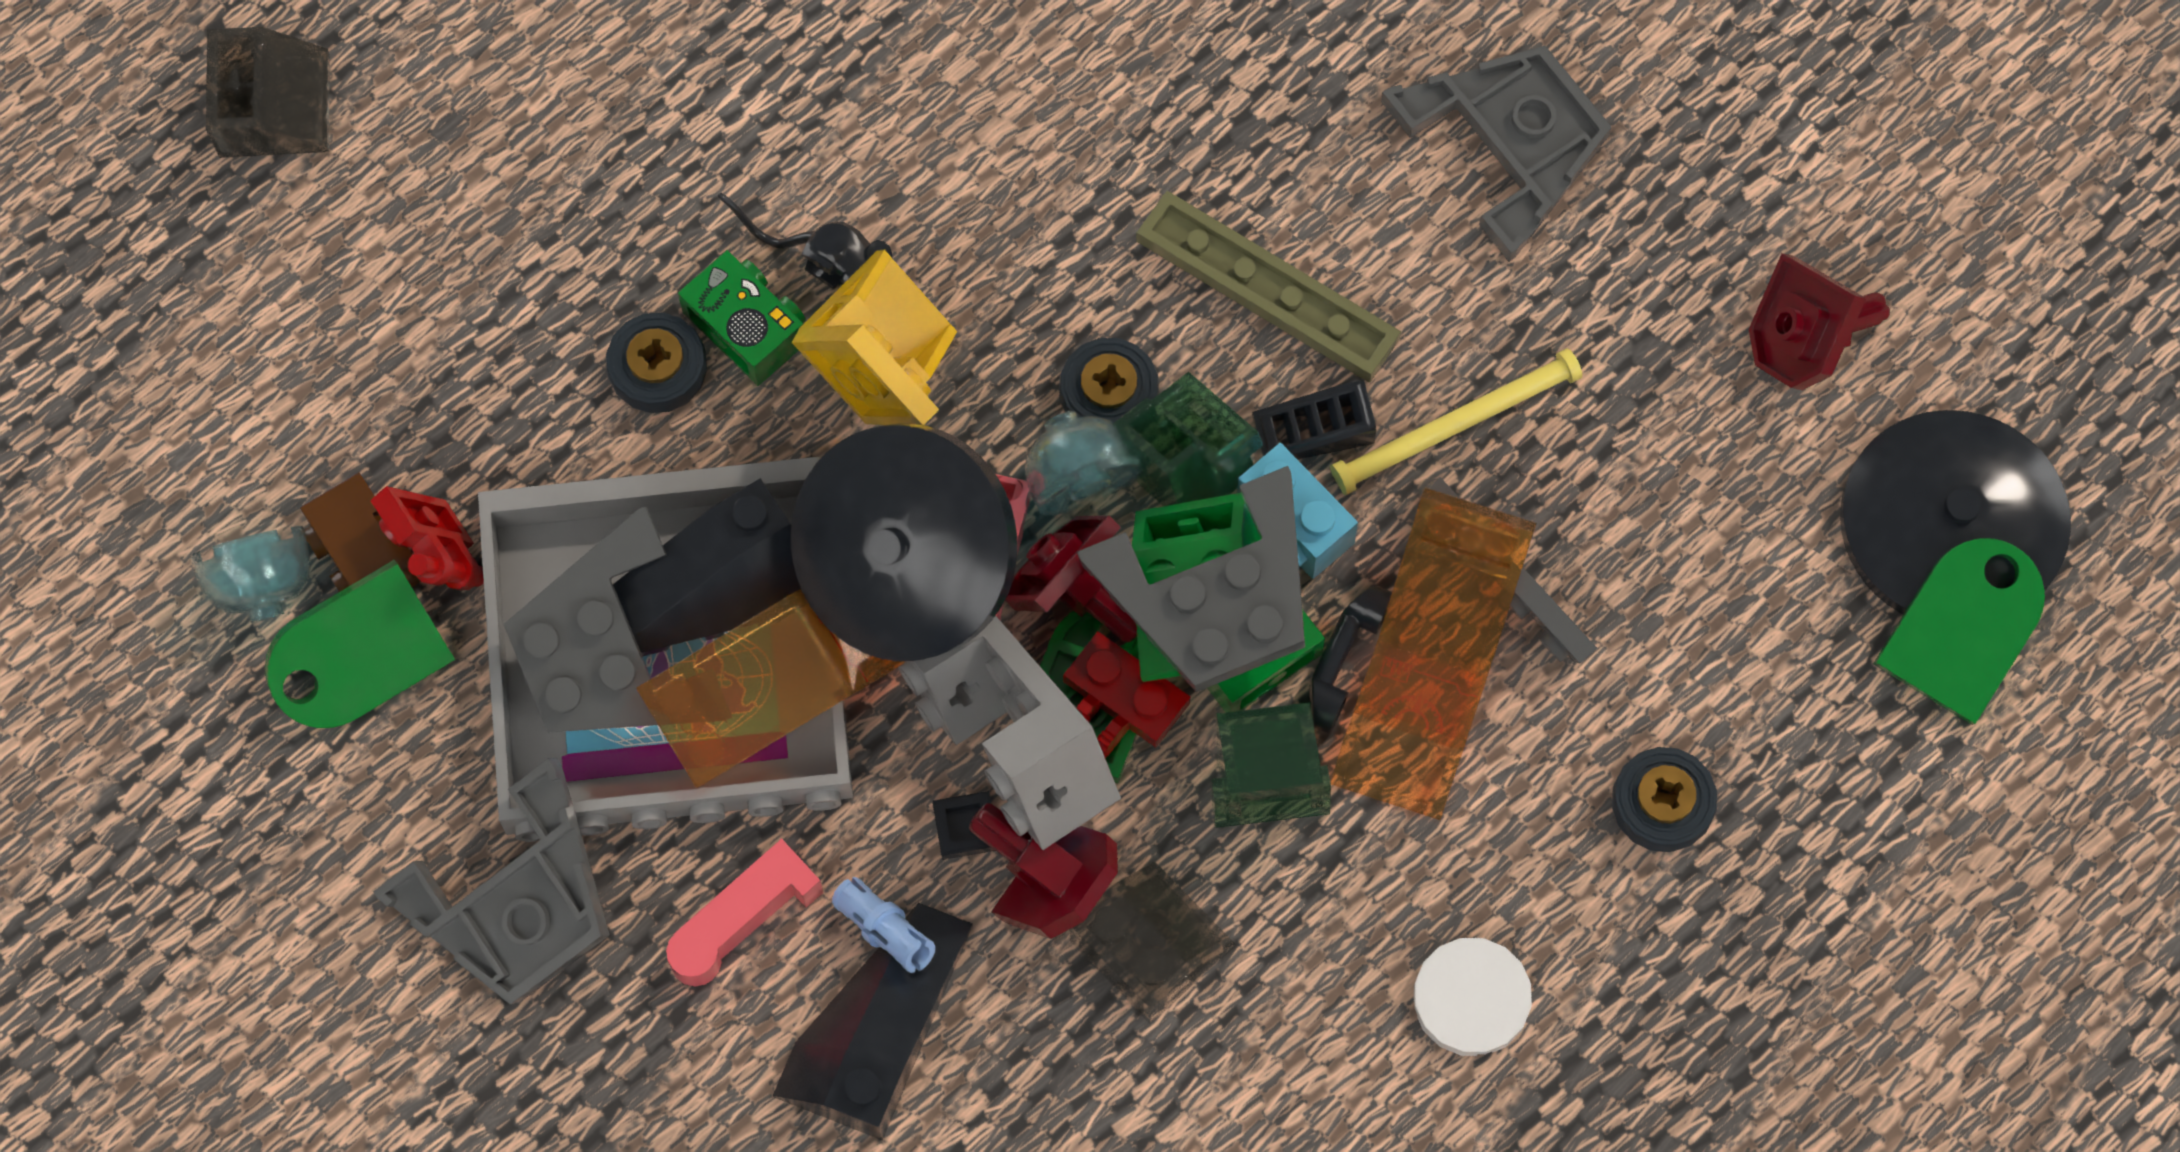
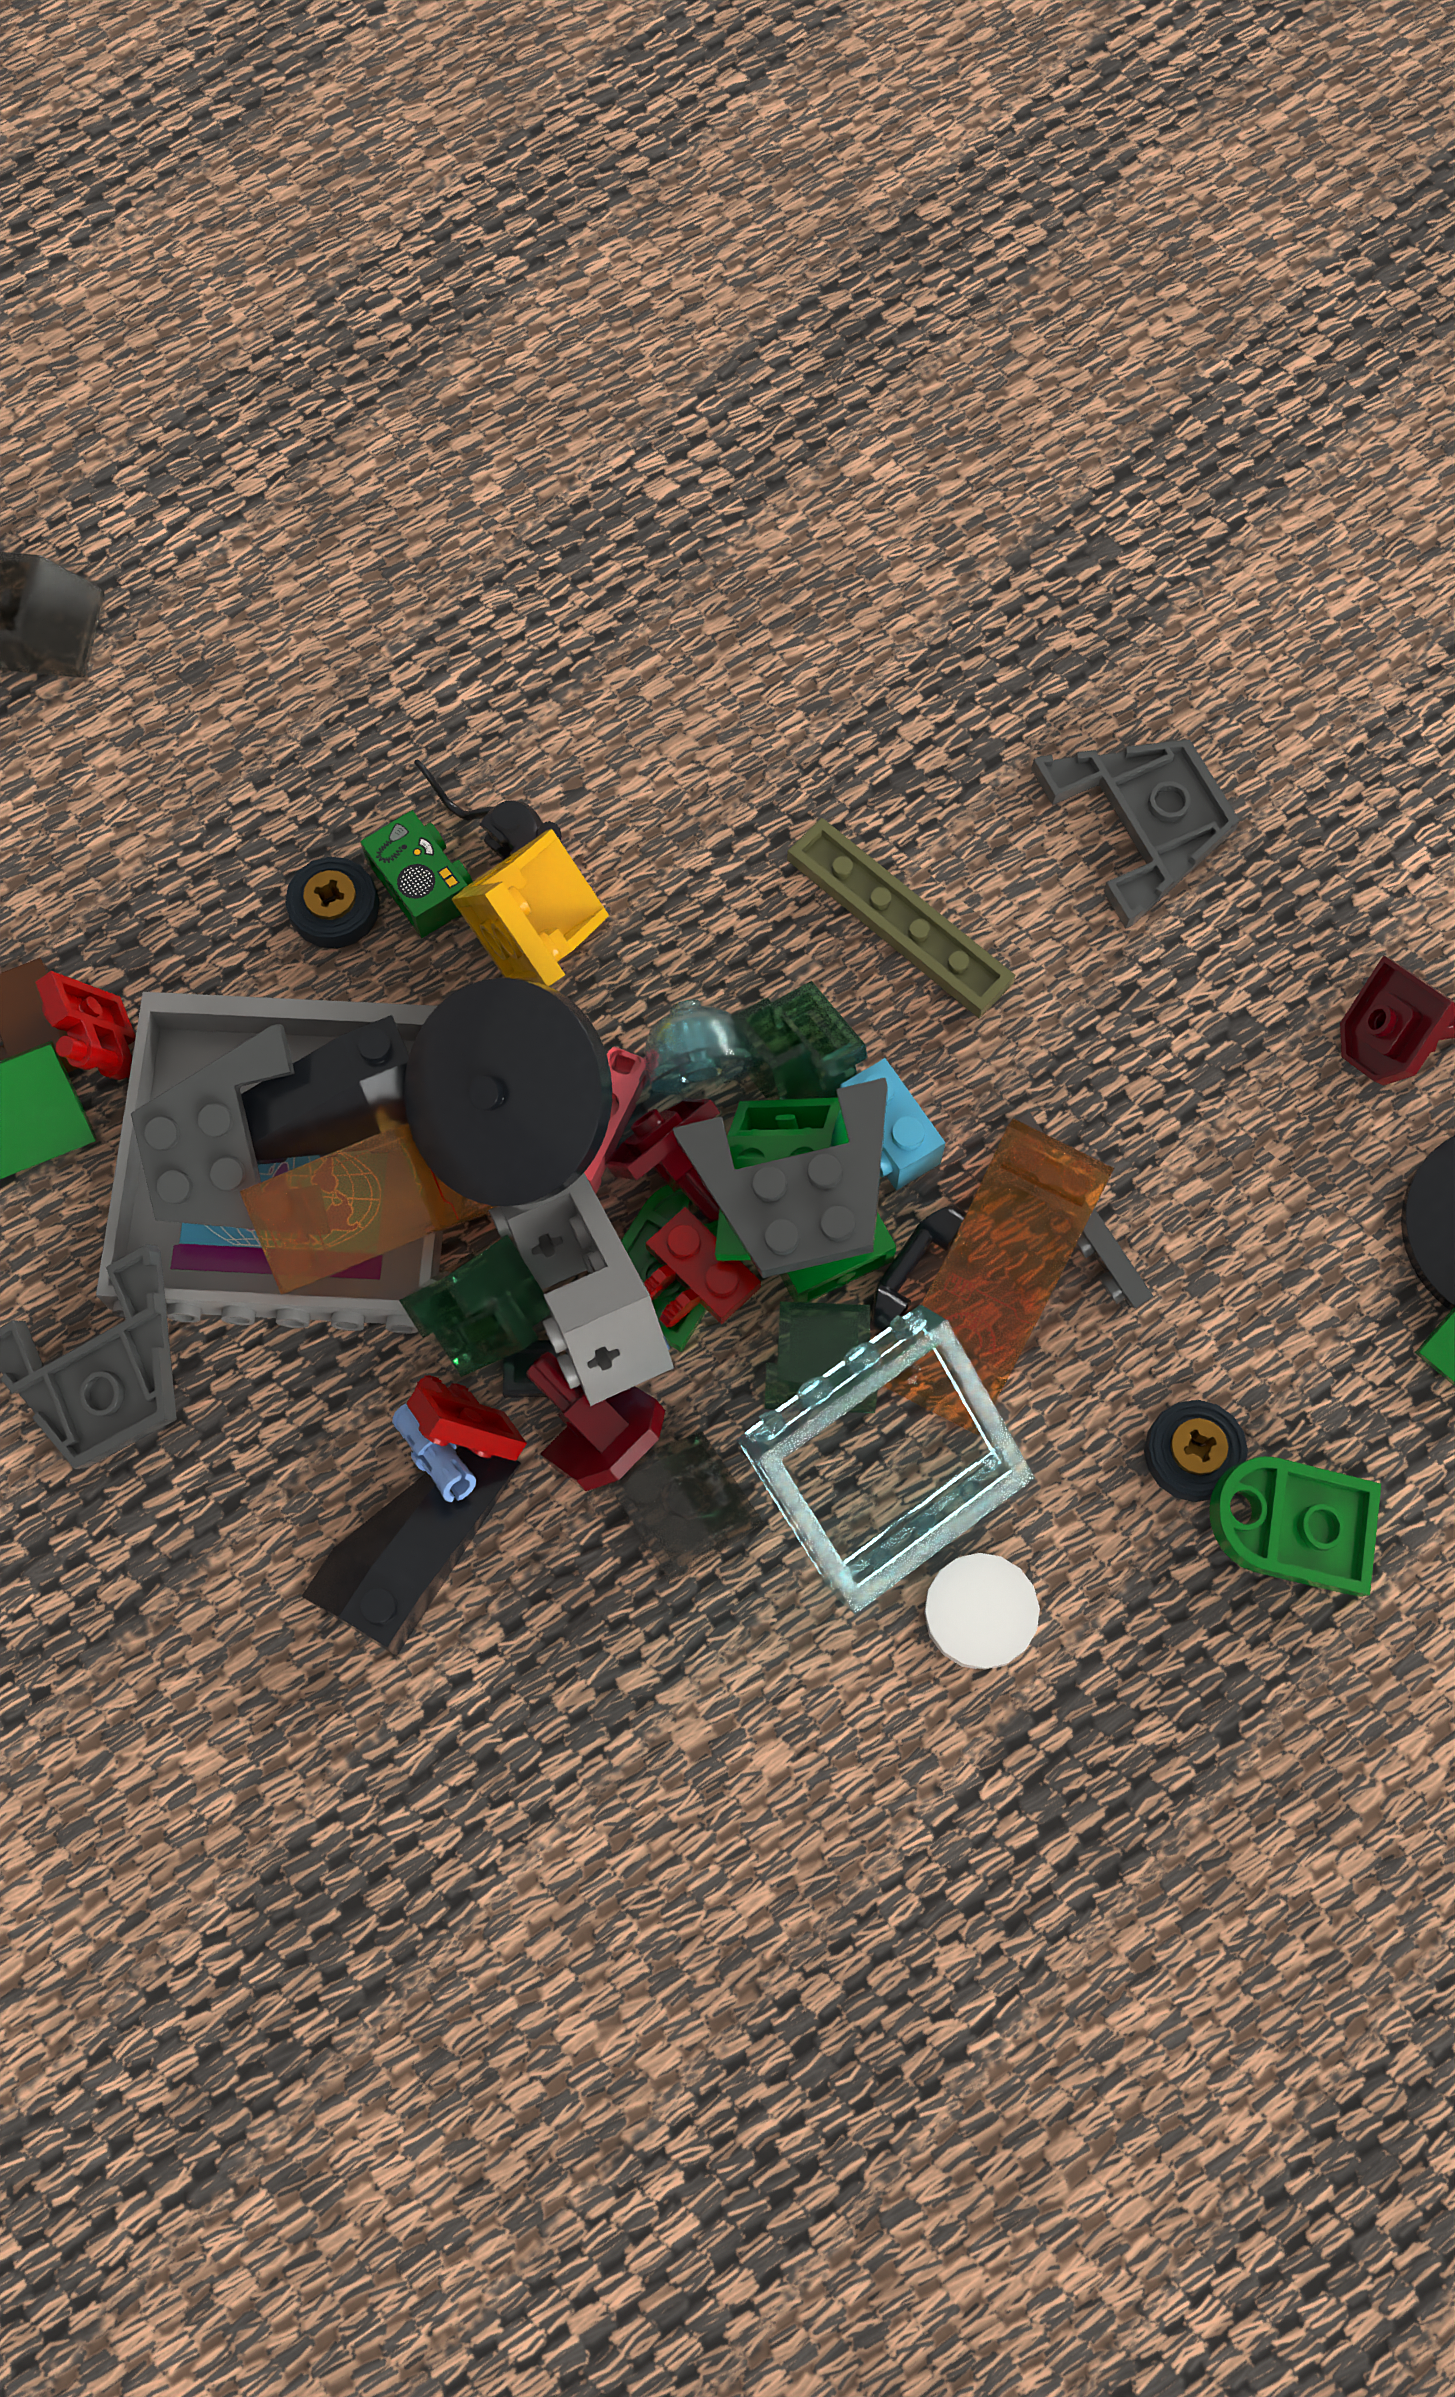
camera: 10 degrees right, 0 degrees up
(739, 910) = (310, 1410): coral leg -> none
(900, 886) = (459, 1419): none -> red hinge
(906, 768) = (480, 1306): none -> clear green plate
(1105, 359) = (733, 961): black wheel -> none
(1320, 443) = (920, 1030): black slope -> none
(1409, 912) = (933, 1520): none -> clear light blue window
(1563, 368) = (1162, 1031): light yellow bar -> none
(1783, 855) = (1302, 1523): none -> green tile

